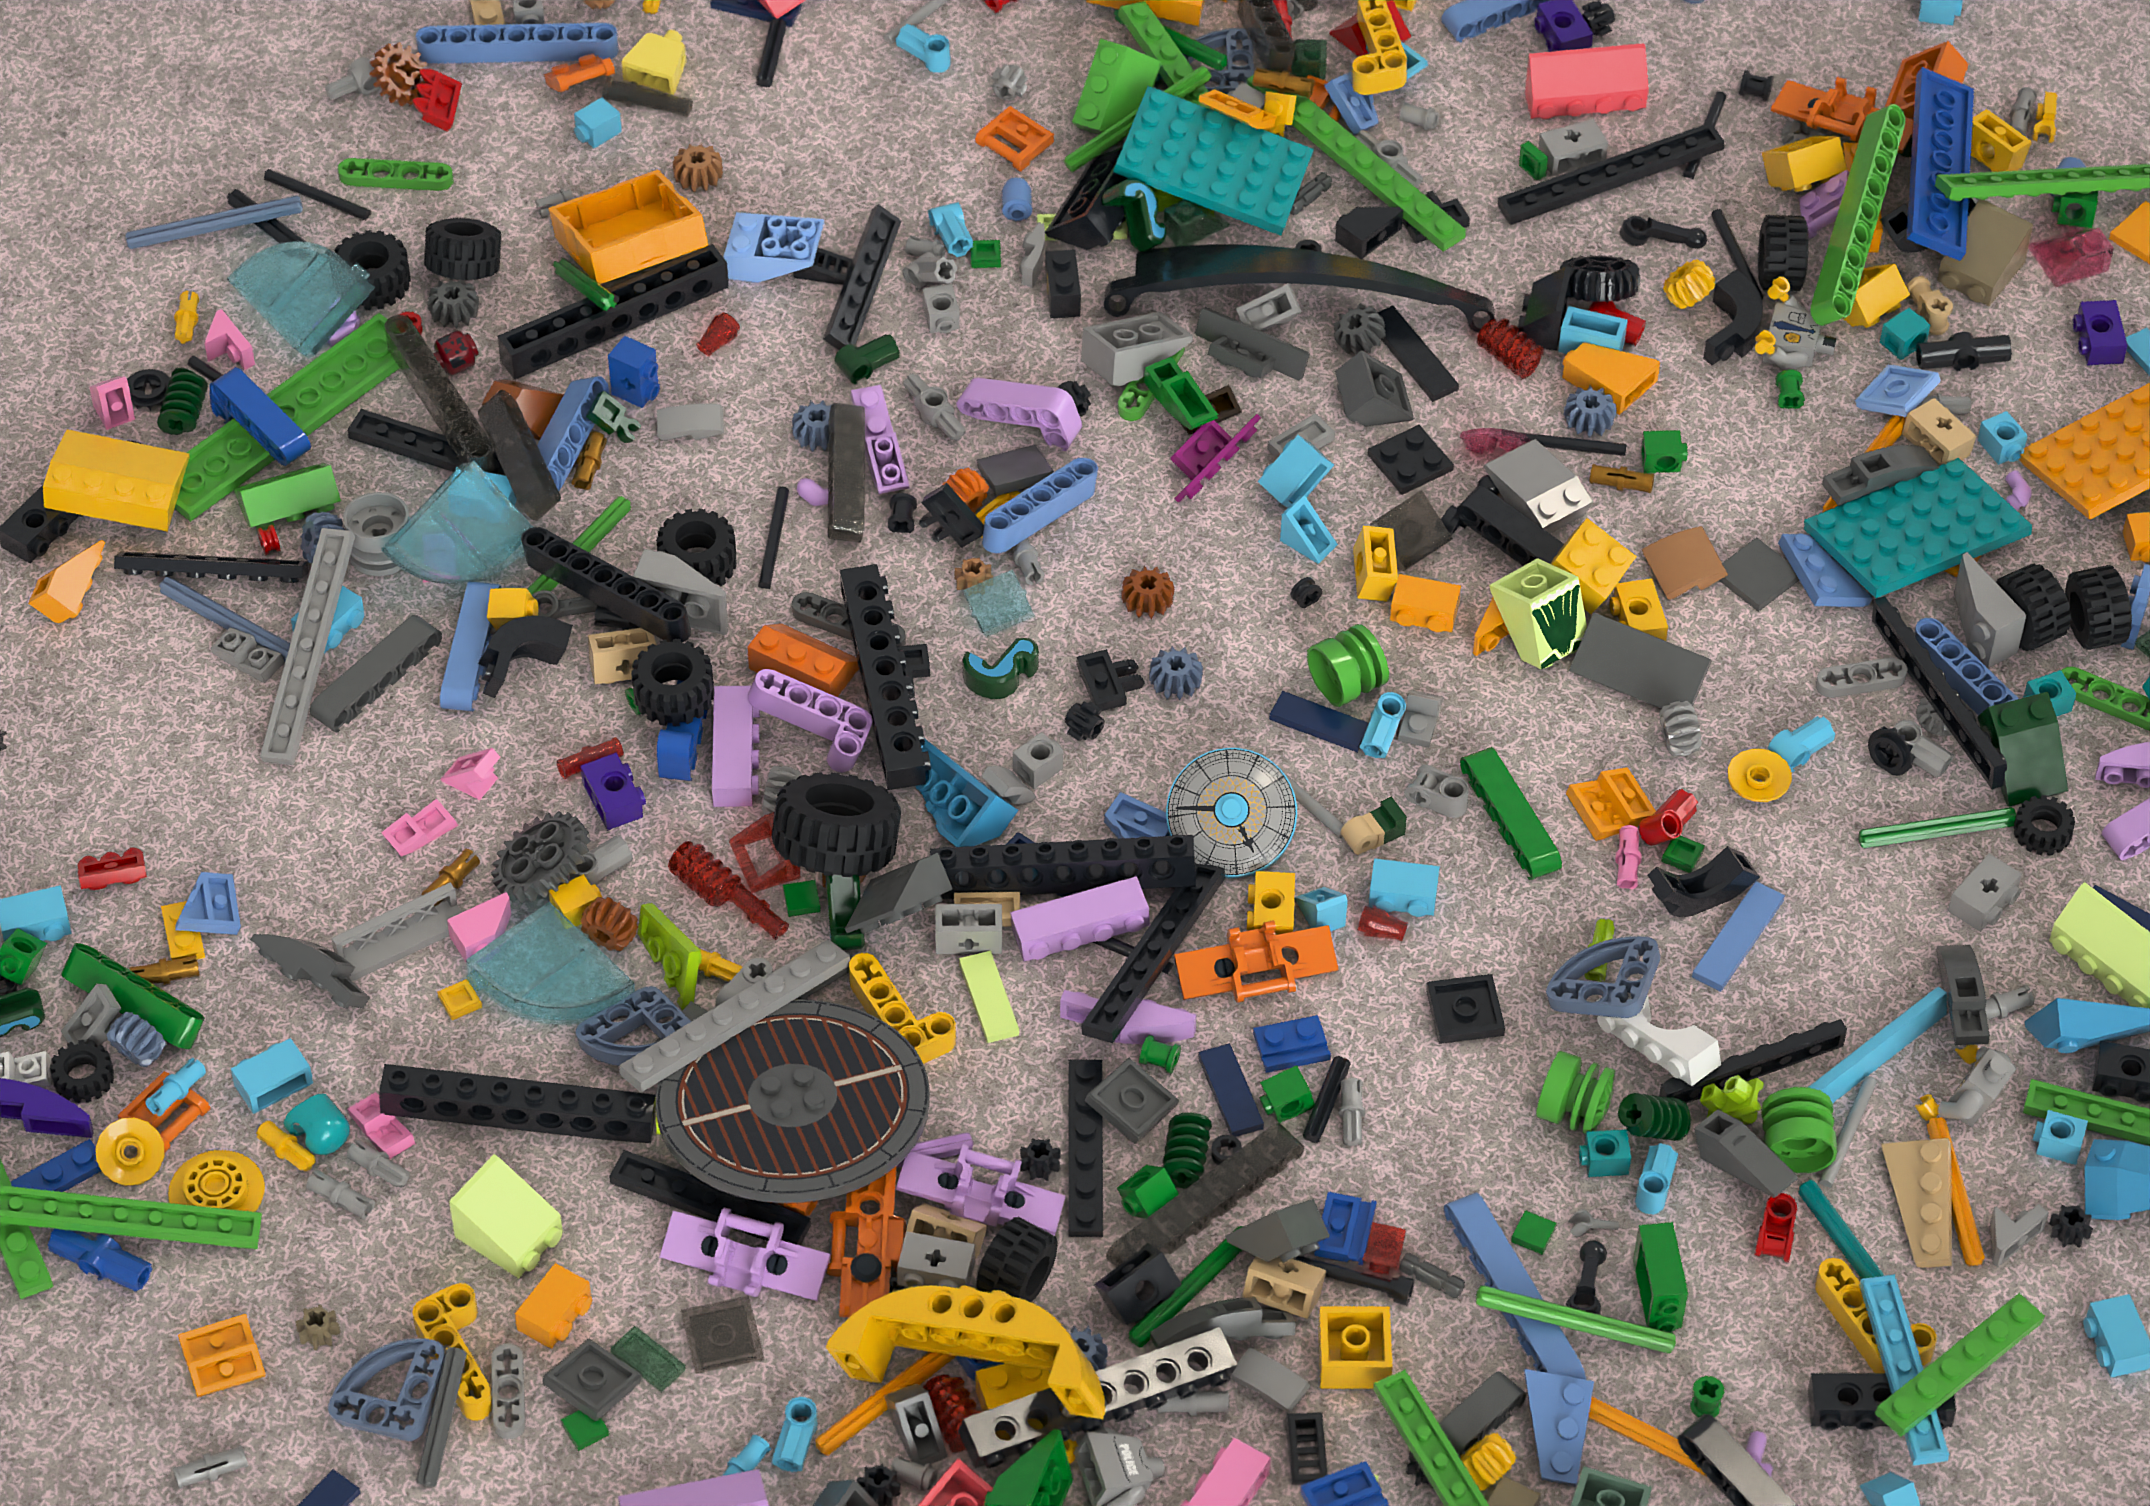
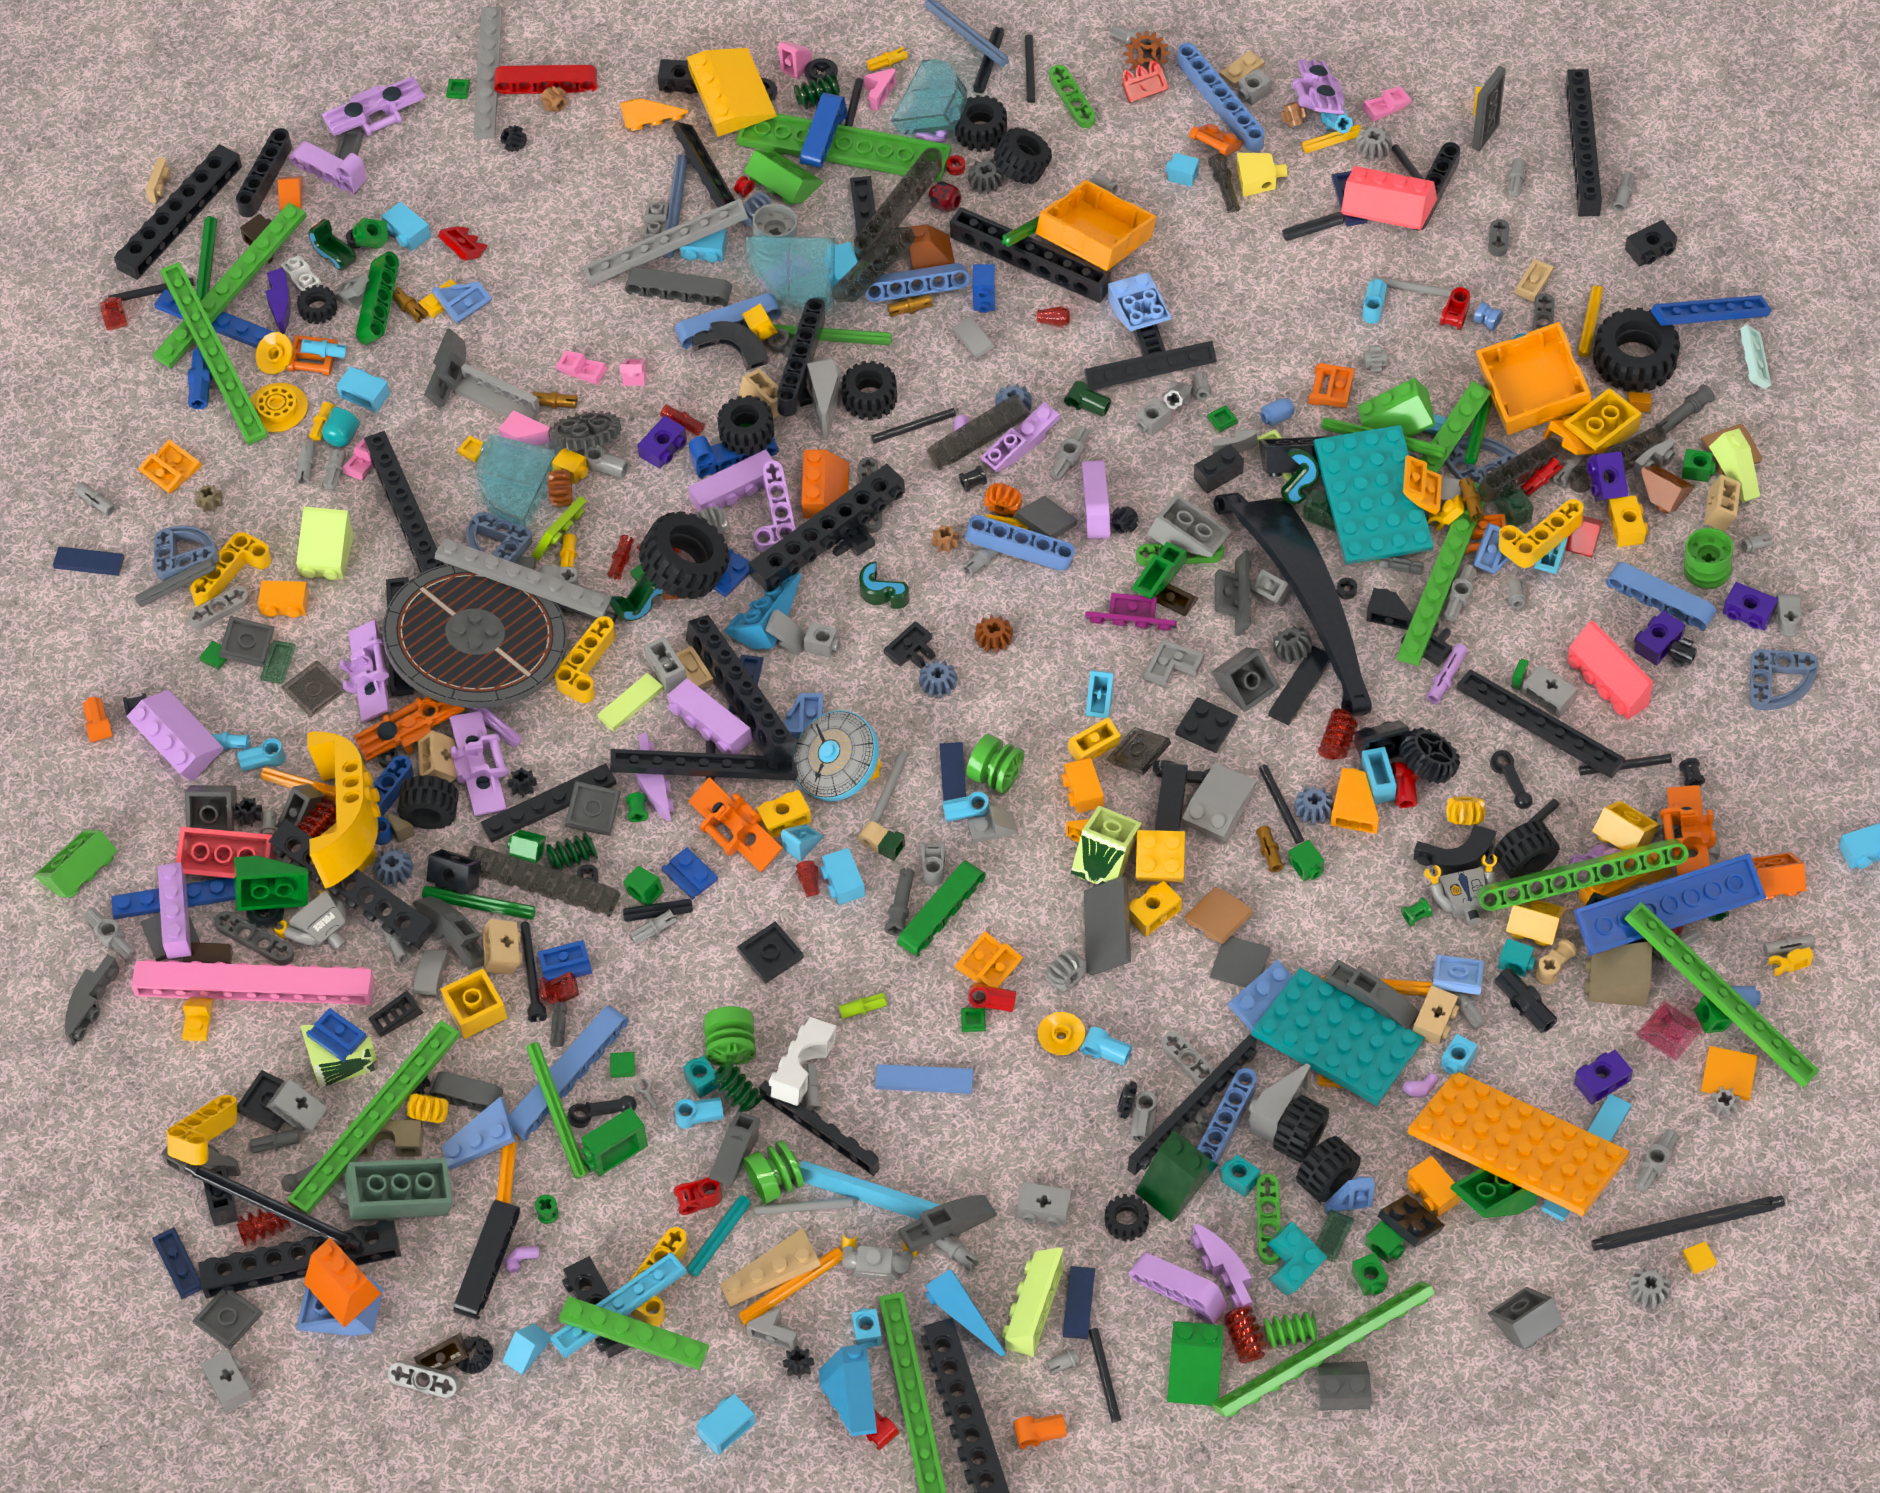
camera: 65 degrees right, 5 degrees up
(136, 1039) = (346, 314): sand blue gear -> none
(609, 416) = (945, 293): plate -> none
(697, 167) = (1183, 237): medium nougat gear -> none
(703, 873) = (627, 515): clear red piece -> none
(900, 894) = (657, 612): dark grey slope -> none
(935, 1262) = (400, 759): light grey brick -> none
(951, 227) = (1229, 386): medium azure piece -> none
(953, 515) = (976, 494): black hinge -> none
(998, 603) = (933, 561): clear light blue piece -> none
(1084, 721) = (866, 649): black gear -> none
(1230, 1090) = (637, 854): dark blue tile -> none
(1282, 1233) = (527, 926): dark grey slope -> none
(1295, 471) = (1138, 664): medium azure piece -> none
(1306, 592) = (1050, 717): black bush -> none
(1487, 439) = (1251, 763): clear pink slope -> none
(1487, 855) = (899, 911): none -> dark grey pin
(1494, 229) = (1443, 680): none -> lavender pin
(1569, 994) = (833, 995): sand blue beam -> none
(1628, 857) = (948, 989): bright pink pin -> none
(1705, 888) = (953, 1045): black arch -> none
(1736, 1099) = (779, 1127): lime hips -> none
(1937, 827) = (1086, 1155): axle -> none
(1997, 143) = (1736, 937): yellow brick -> none

